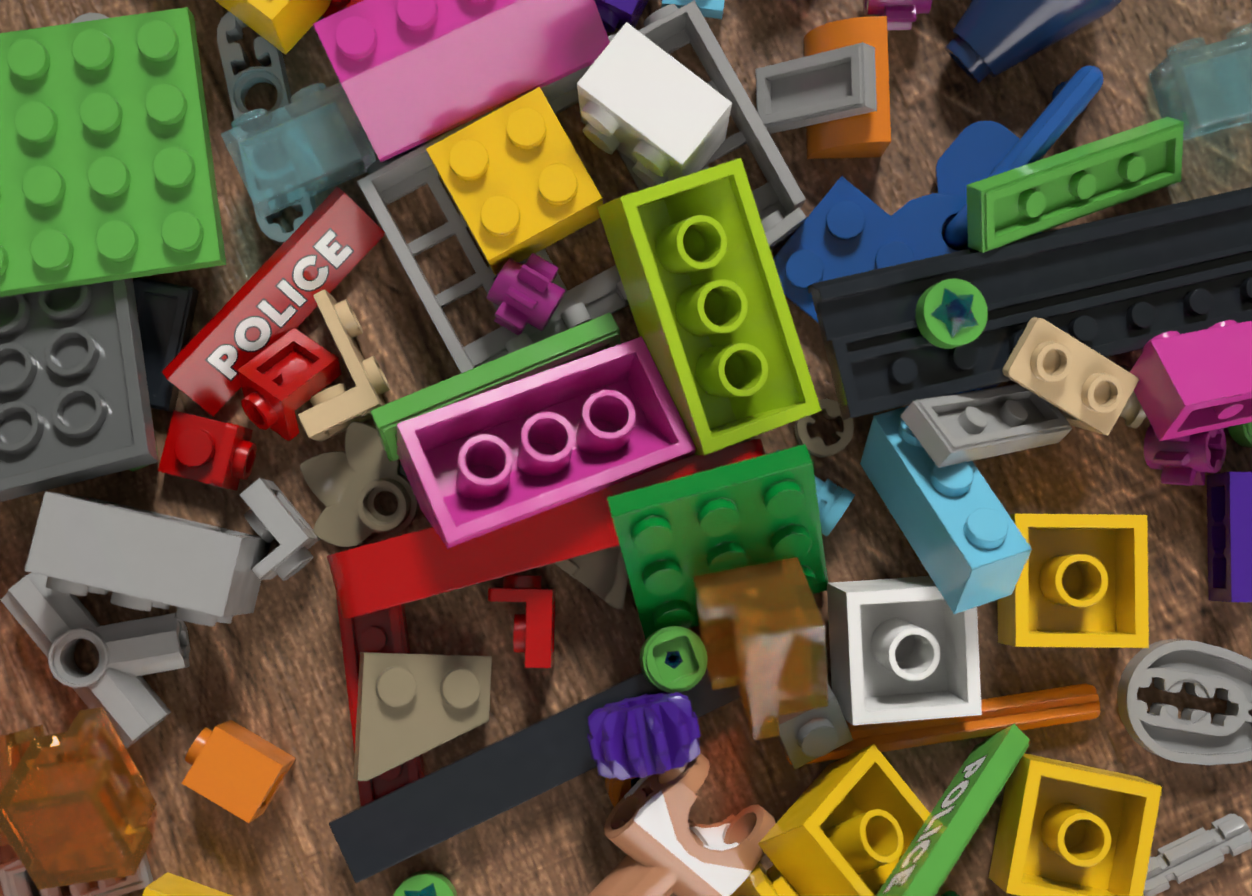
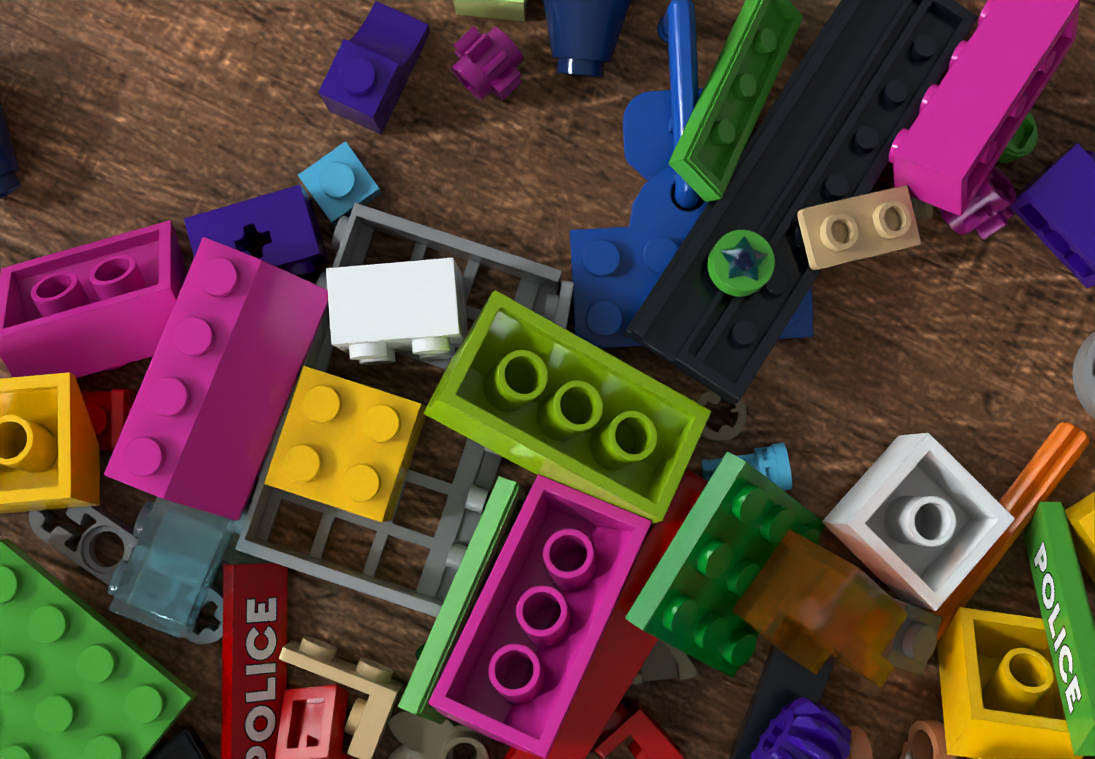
camera: 40 degrees left, 0 degrees up
(526, 294) = (427, 517): magenta gear -> none
(673, 659) = (768, 678): bright green tile -> none
(817, 88) = (496, 185): light grey tile -> none
(861, 134) = (516, 164): orange brick -> none
(946, 516) = (858, 400): medium azure brick -> none
(984, 424) = (830, 318): light grey tile -> none
(1079, 583) = (989, 366): yellow brick -> none

